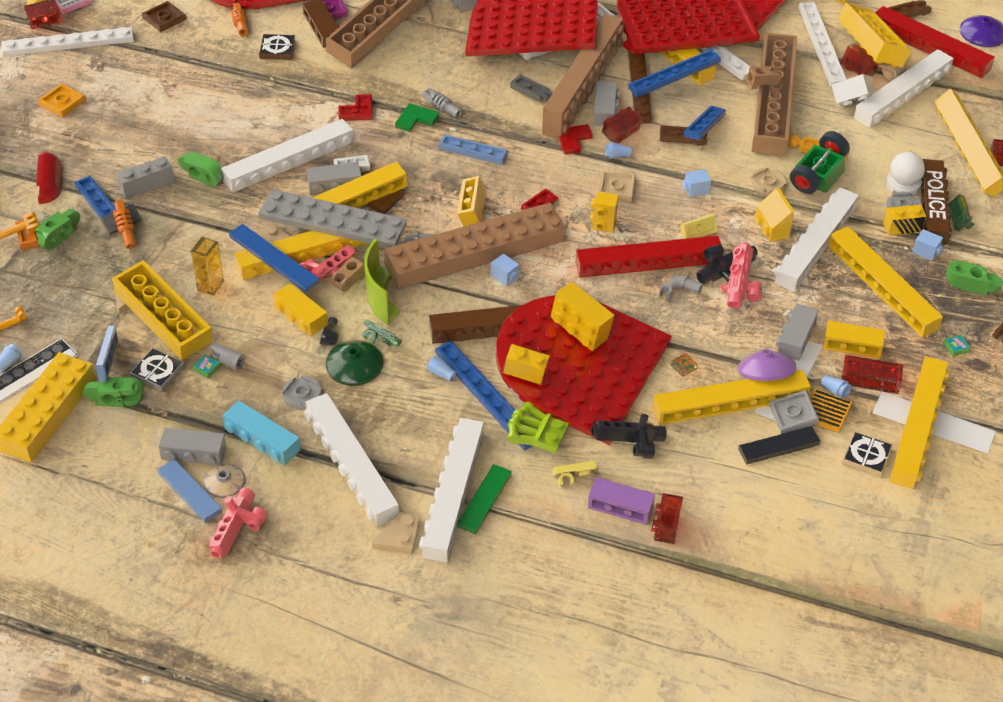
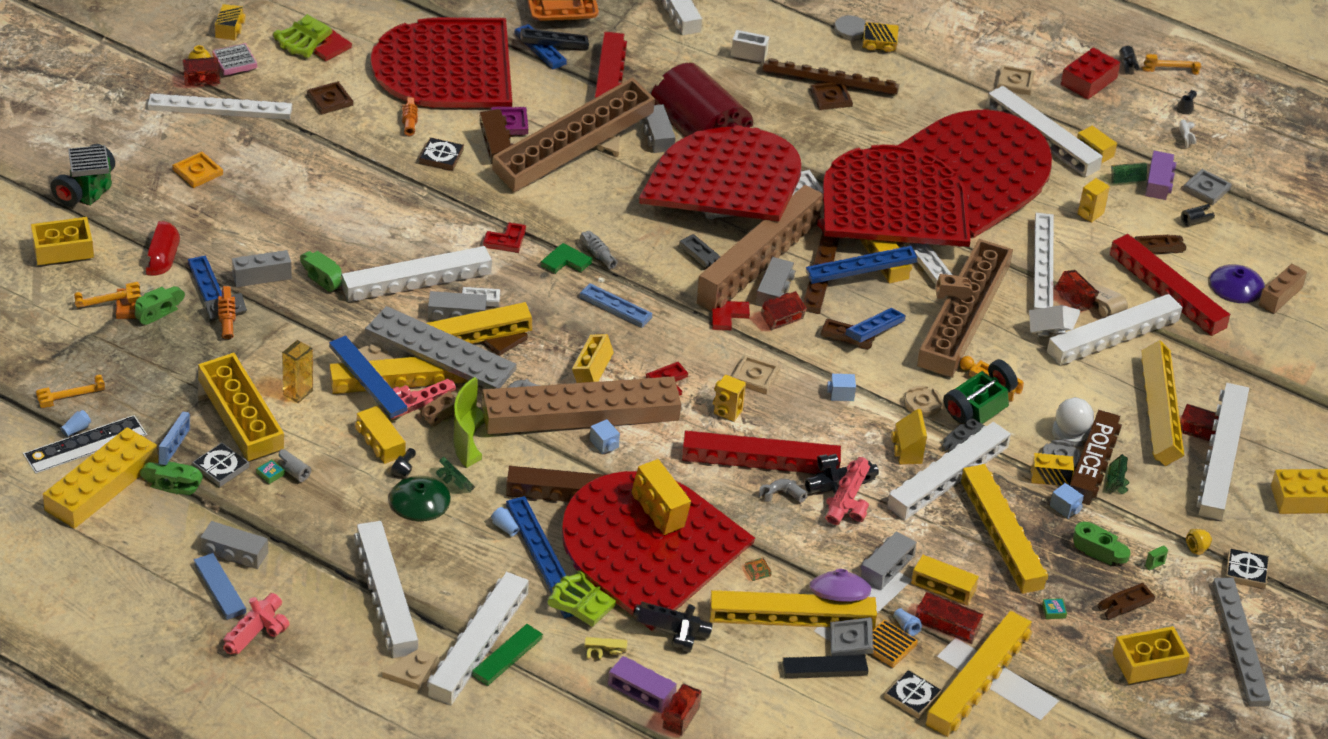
camera: 10 degrees right, 5 degrees down
(224, 480) = (256, 583): tan dish -> none
(261, 432) = (306, 546): medium azure brick -> none
(299, 391) = (357, 513): light grey tile -> none
(526, 364) = (587, 532): yellow brick -> none
(616, 150) = (769, 336): light blue cone -> none
(699, 227) = (827, 433): light yellow plate -> none
(814, 204) = (961, 434): none -> dark grey hinge
(874, 35) = (1099, 264): yellow brick -> none

